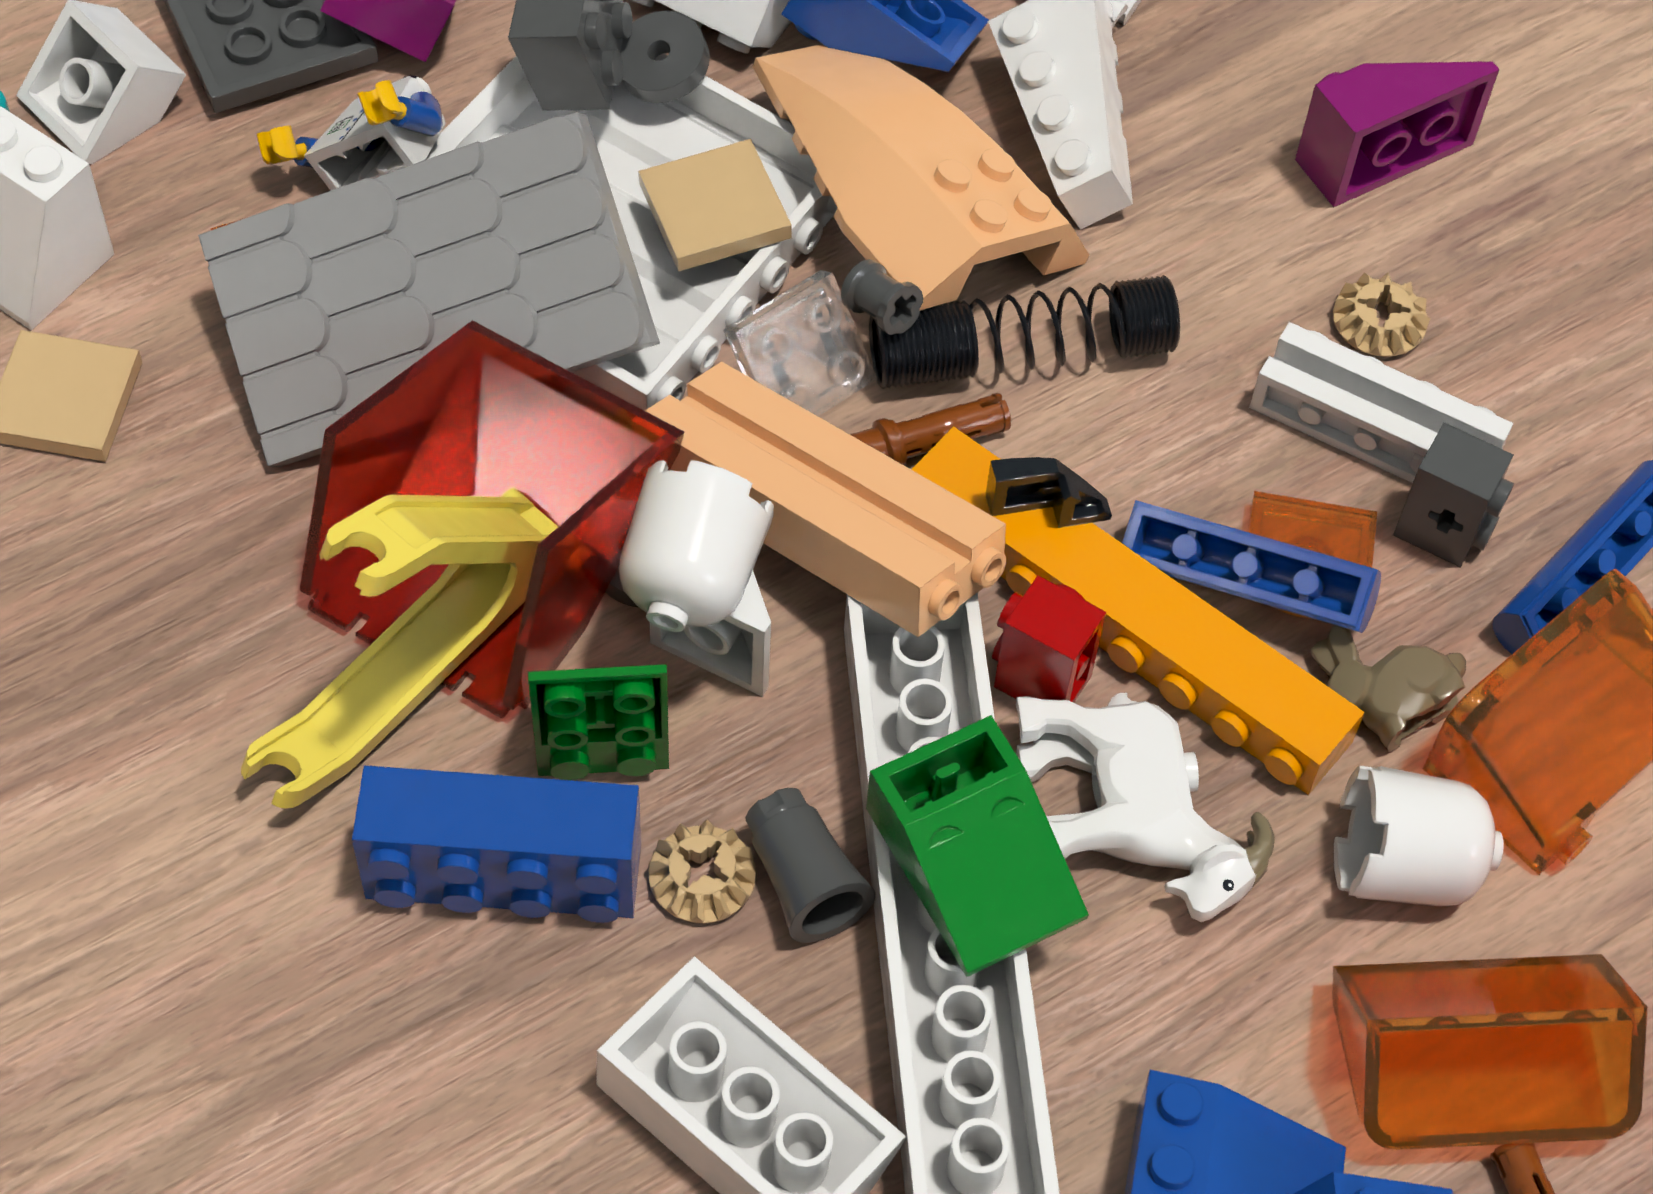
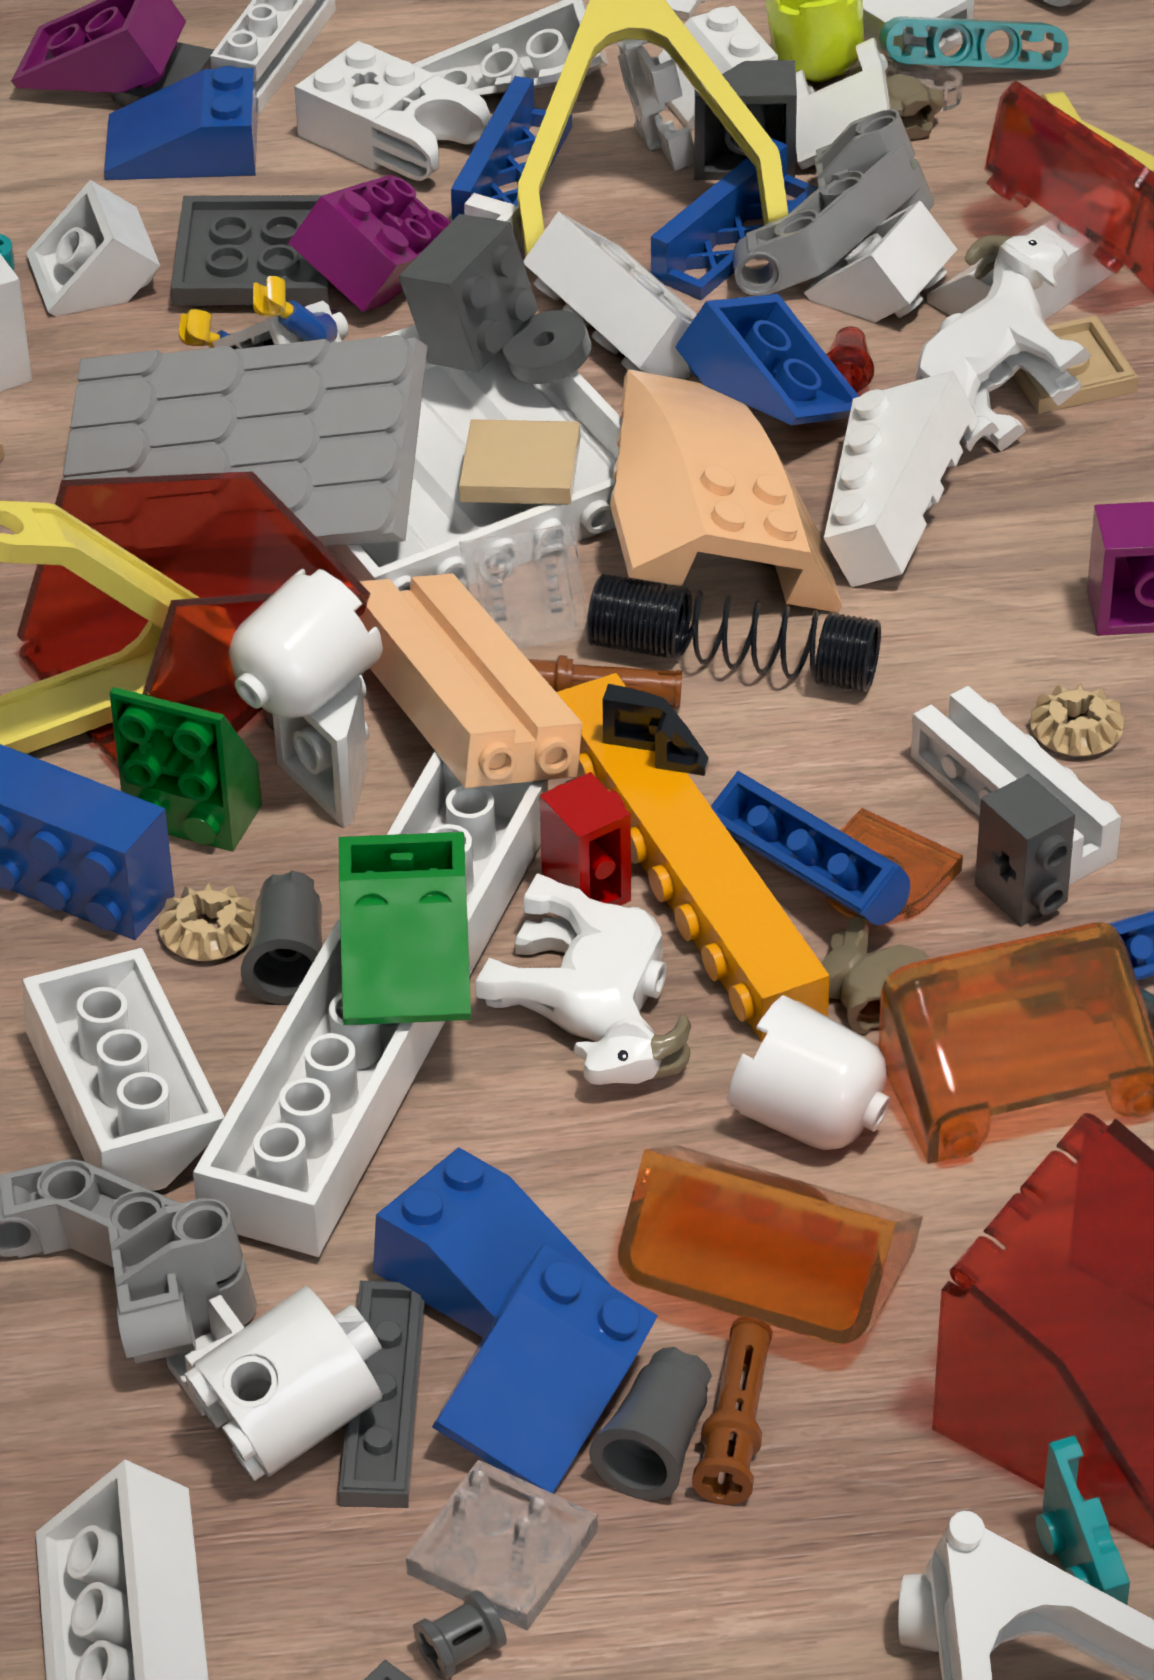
camera: 30 degrees right, 15 degrees down
(882, 297) = (599, 537): dark grey bush -> none

